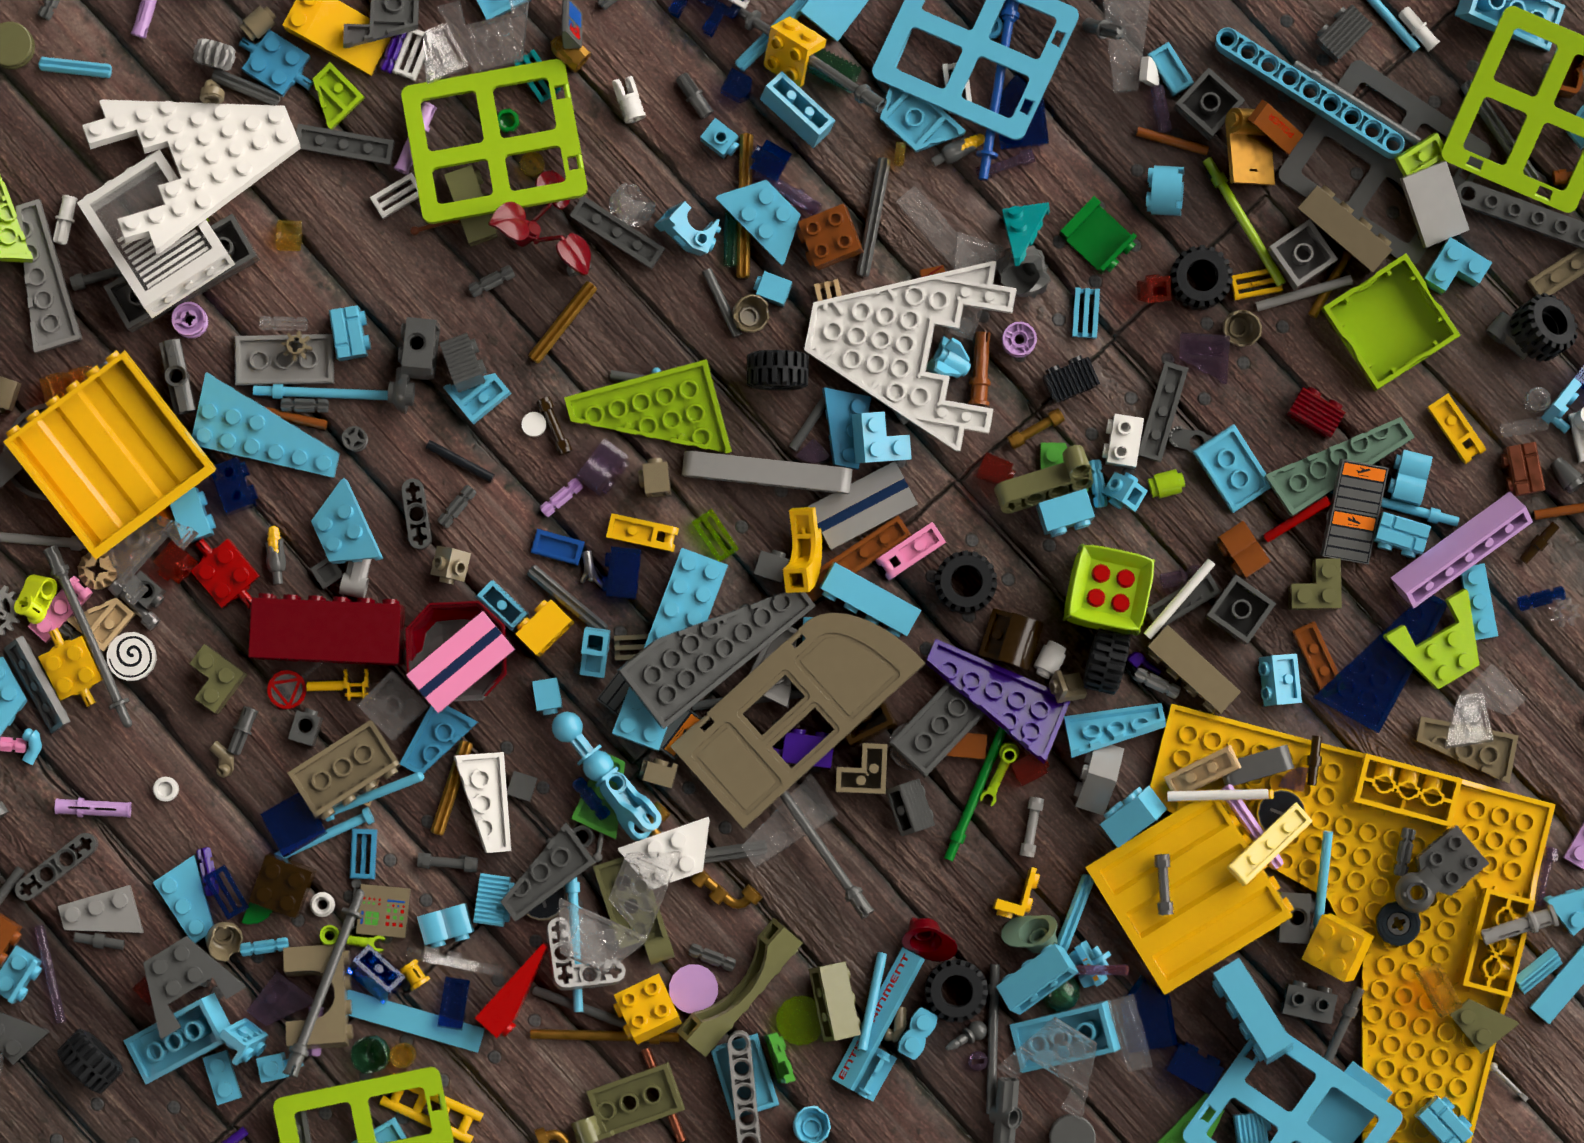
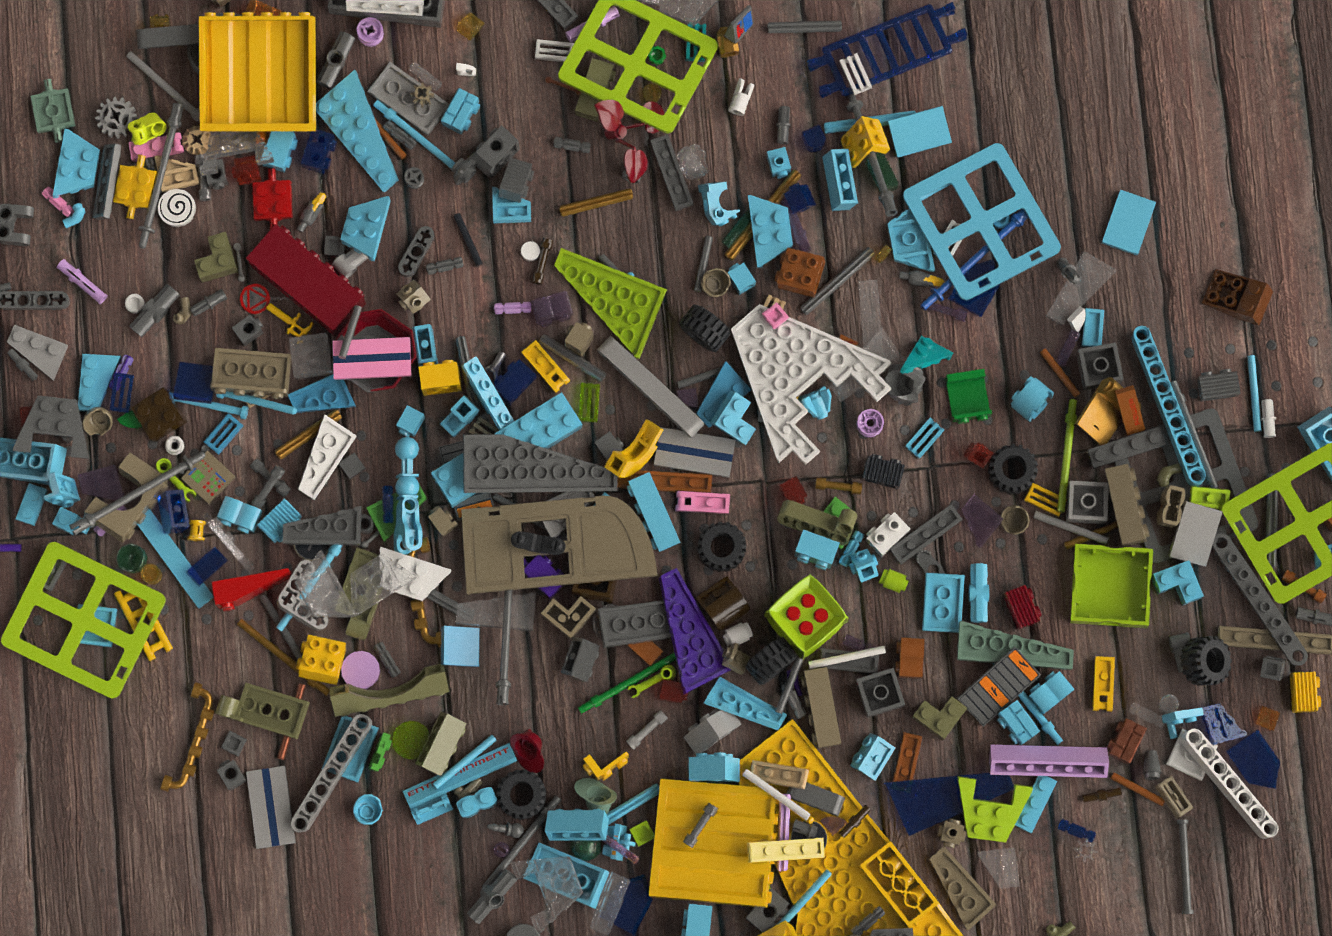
camera: 35 degrees right, 5 degrees down
(192, 781) = (154, 310): none -> dark grey piece
(226, 649) = (237, 247): none -> light grey hinge
(263, 946) = (118, 443): medium azure axle -> none
(321, 285) = (465, 70): none -> white tile
(417, 652) = (350, 332): none -> dark grey bar
(452, 854) = (276, 473): none -> dark grey bar
(557, 547) = (487, 336): blue tile -> none
(606, 607) = (487, 393): none -> medium azure bracket
(662, 502) = (572, 358): none -> flat silver axle
(777, 887) = (460, 646): none -> tile
(778, 722) = (538, 543): none -> black piece
(840, 302) = (775, 316): none -> bright pink tile
(980, 382) = (826, 430): dark orange pin -> none
(1108, 935) = (642, 833): none -> lime plate
(1142, 673) = (789, 685): none -> dark grey bar
(1261, 431) = (978, 593): none -> medium azure piece
(1271, 807) = (805, 829): none -> dark grey pin
(1297, 519) = (959, 664): red bar -> none
(1298, 167) = (1126, 447): none -> dark grey plate
(1358, 163) = (1166, 472): none -> olive arm
(1387, 189) = (1170, 511): none -> dark tan brick
(1411, 701) = (945, 837): none -> dark tan brick
(1469, 722) = (971, 872): clear wing -> none

